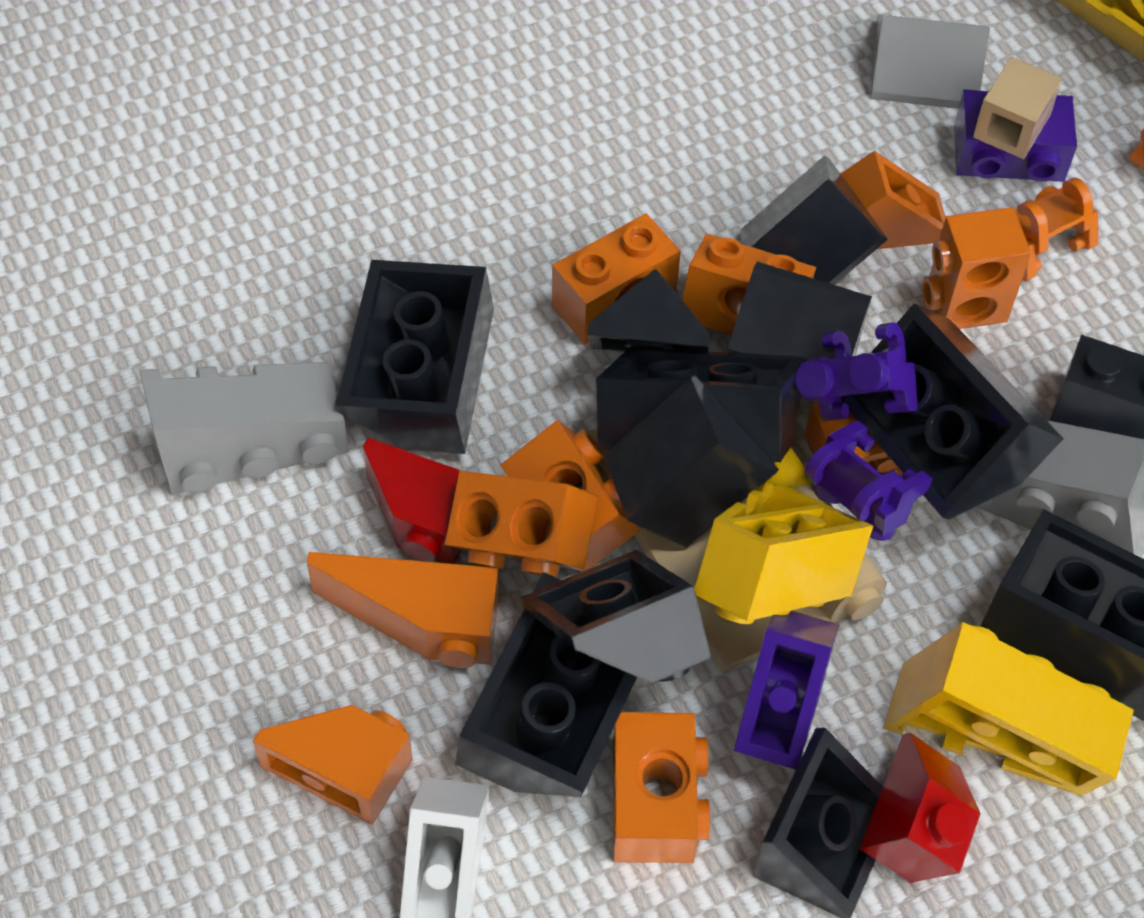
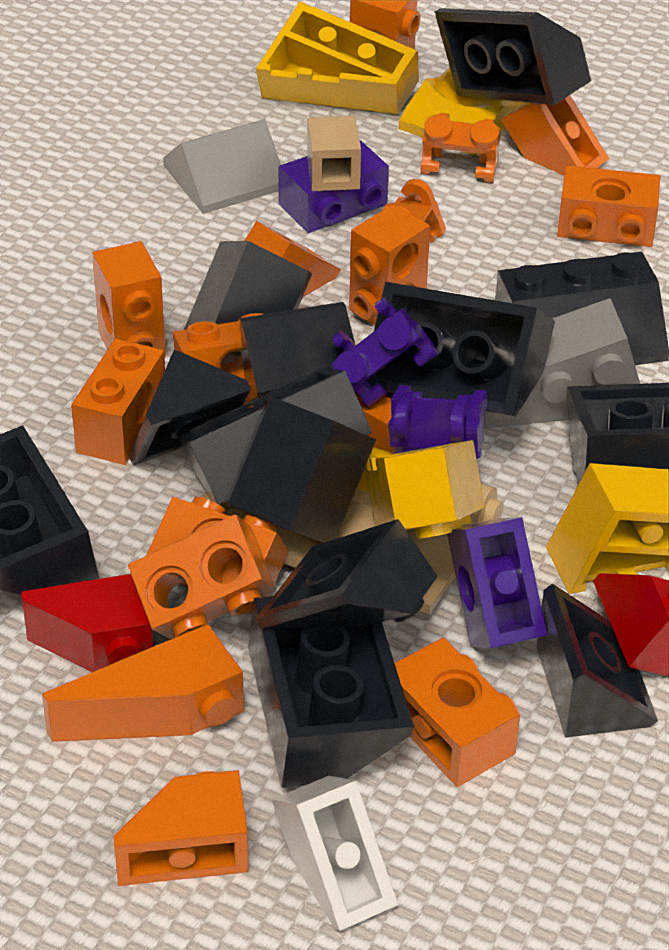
camera: 35 degrees left, 15 degrees down
(693, 177) = (129, 296): none -> orange brick

